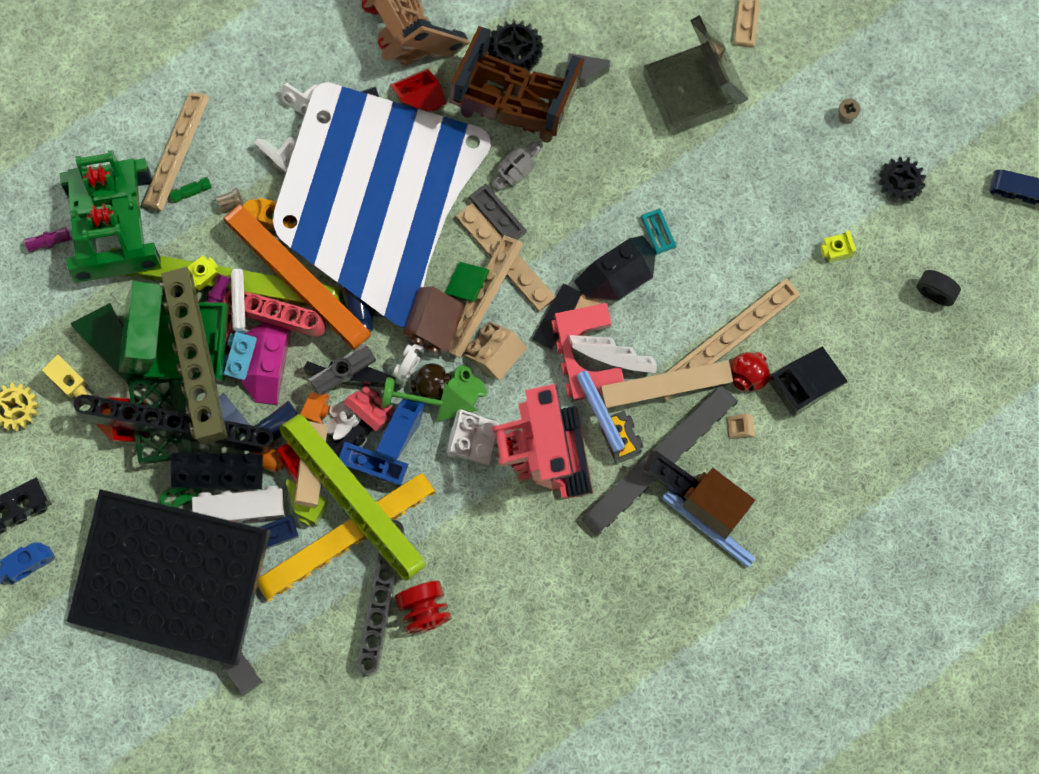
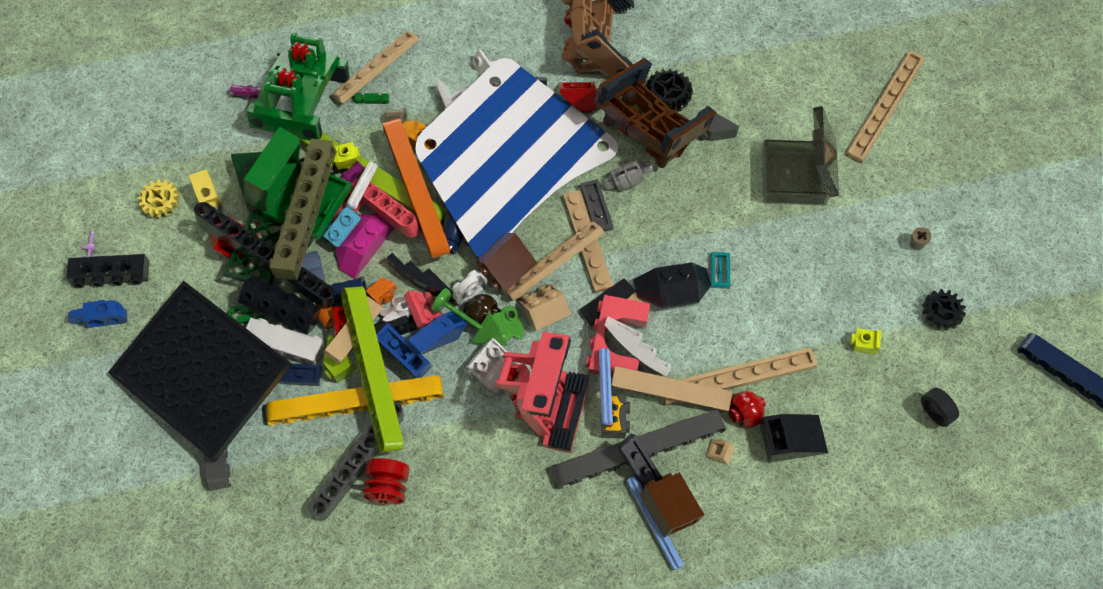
camera: 25 degrees right, 10 degrees down
(354, 361) = (403, 270): dark grey piece -> none
(467, 281) = (547, 245): green piece -> none

